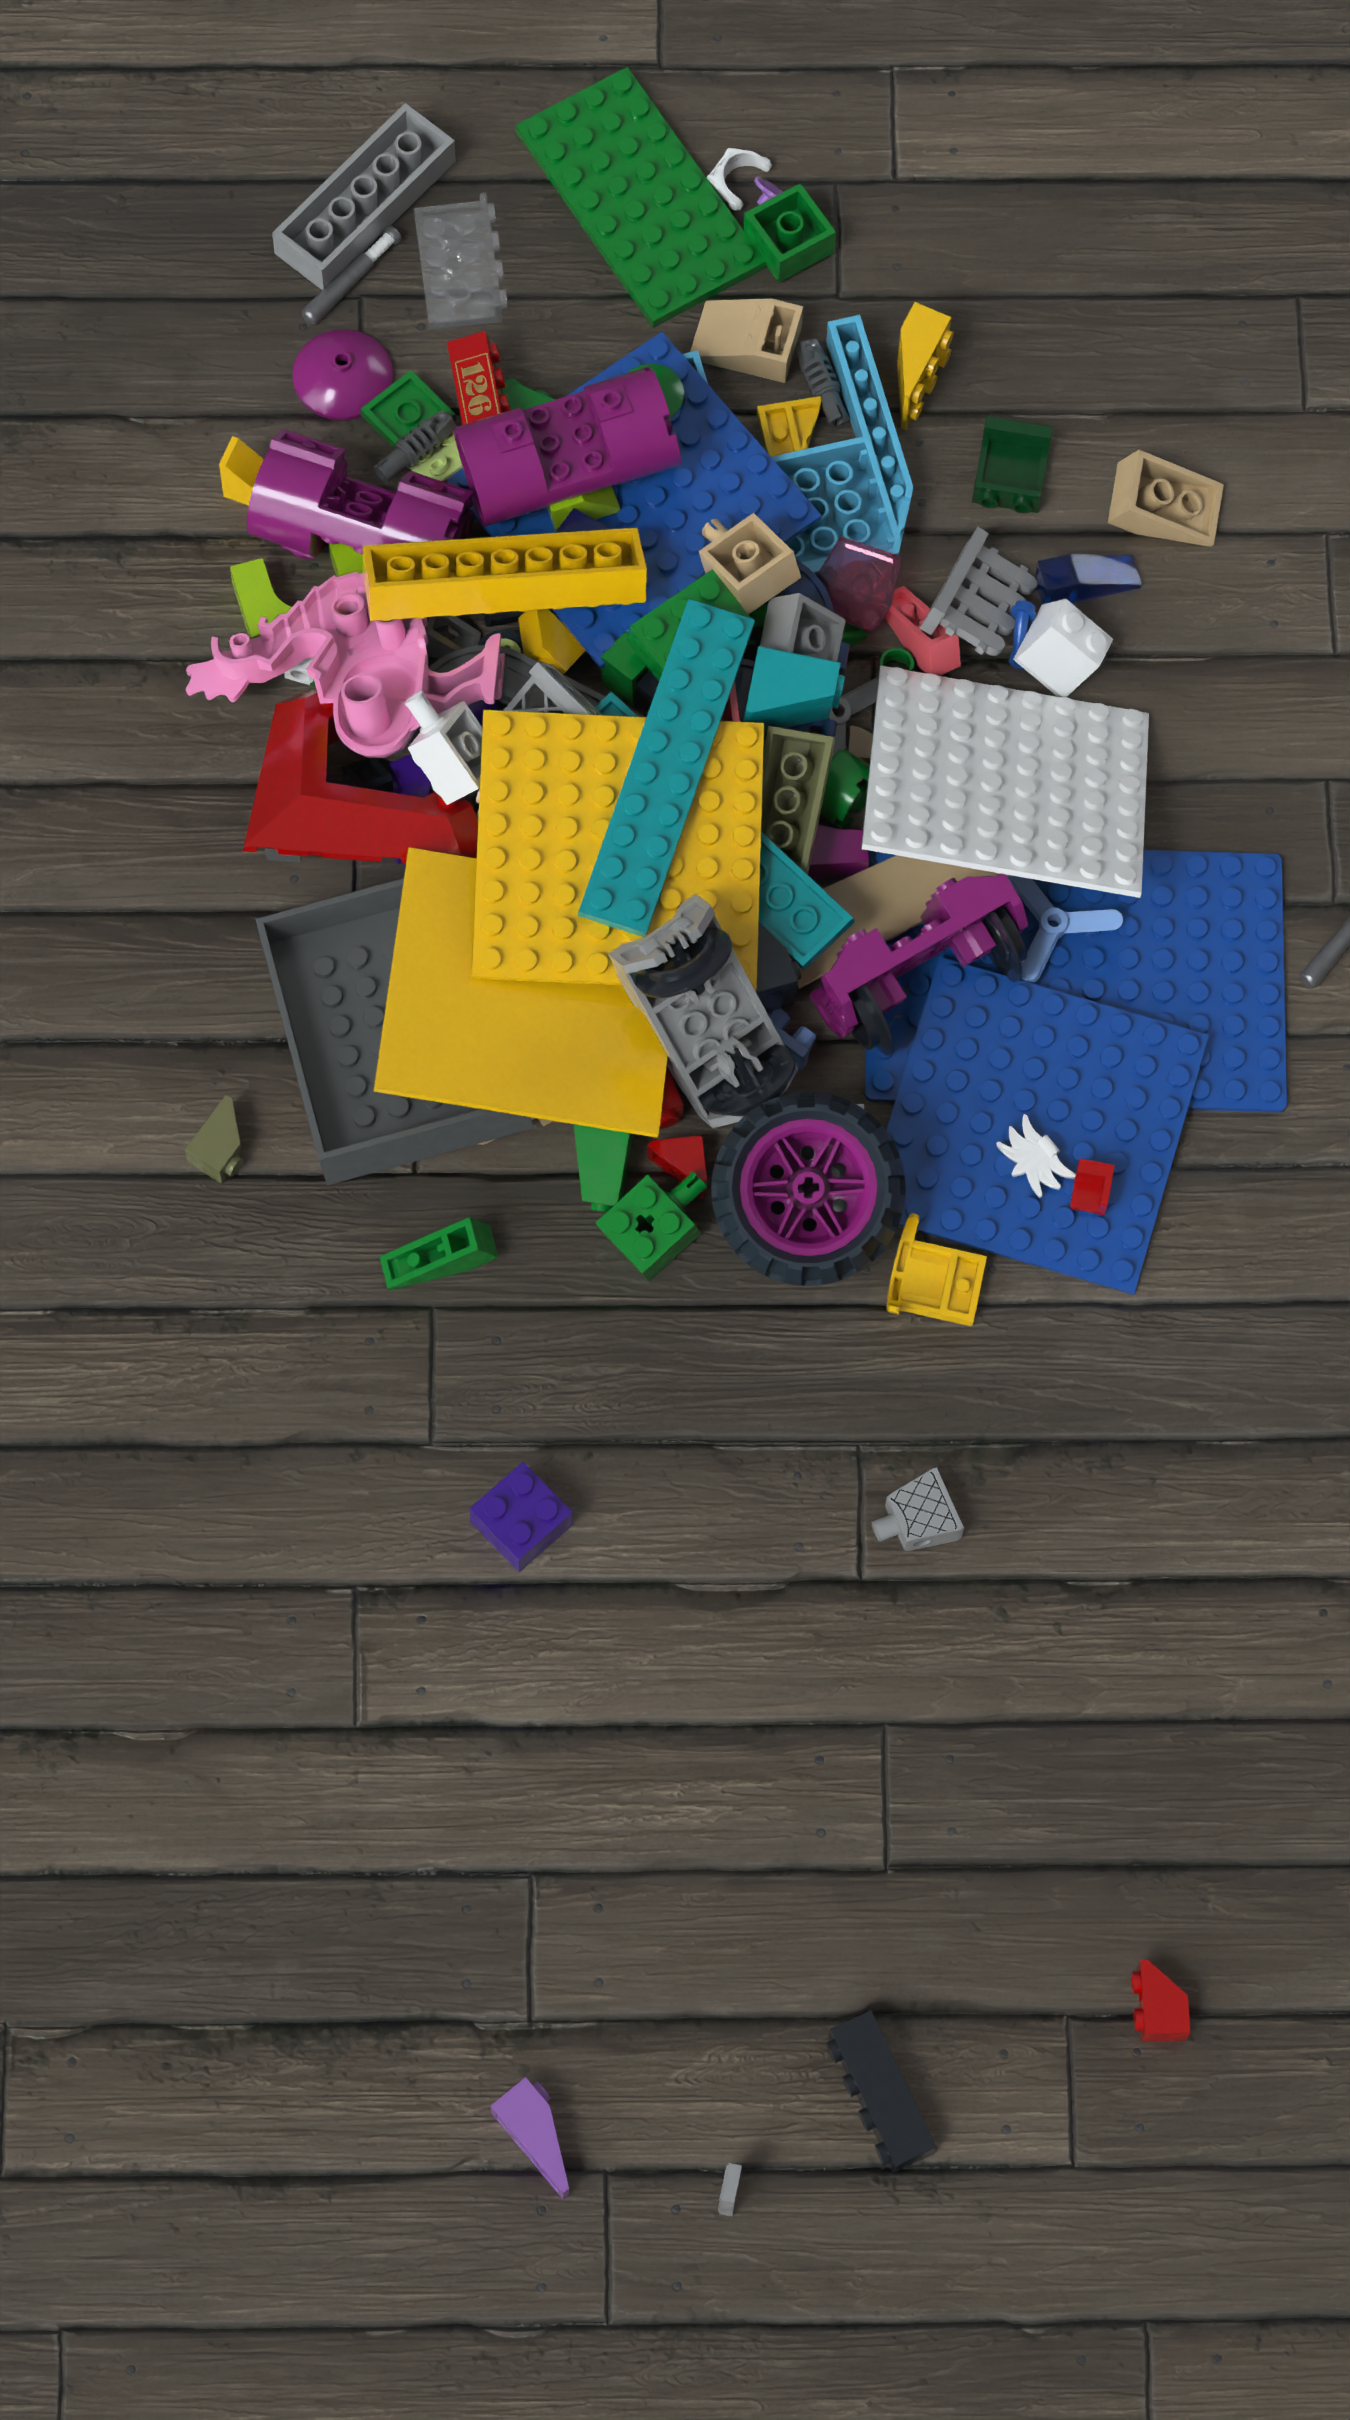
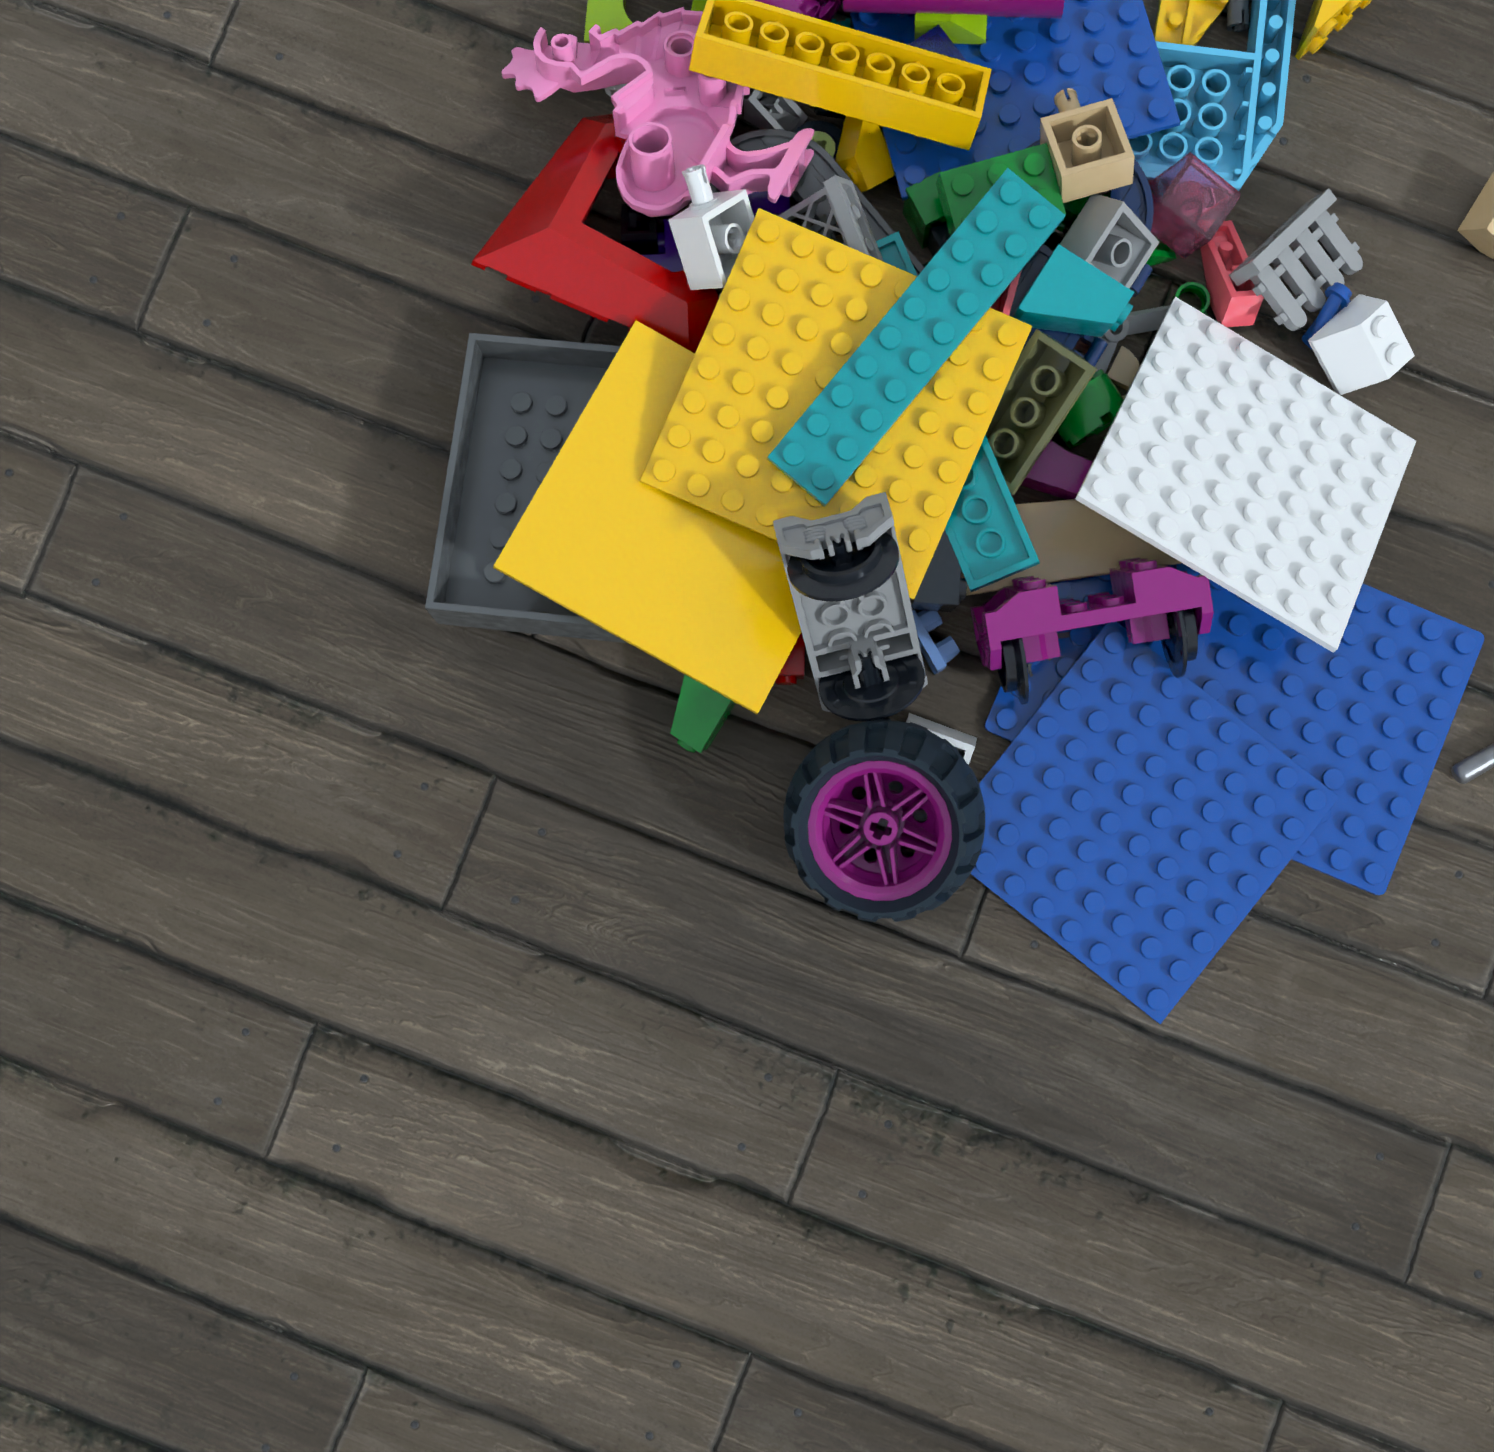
camera: 25 degrees right, 15 degrees up
(217, 1144) = (357, 539): olive slope -> none
(440, 1254) = (518, 731): green slope -> none
(521, 1516) = (489, 1023): dark purple brick -> none
(663, 1211) = (745, 778): green brick -> none
(679, 1158) = (785, 727): red slope -> none
(920, 1514) = (865, 1168): light grey torso -> none
(934, 1279) = (973, 940): yellow piece -> none
(1012, 465) = (1388, 135): dark green panel -> none
(1035, 1157) = (1119, 857): white piece -> none
(1068, 923) = (1250, 629): light blue piece -> none
(1085, 577) = (1411, 278): clear blue slope -> none
(1092, 1186) = (1162, 912): red panel -> none

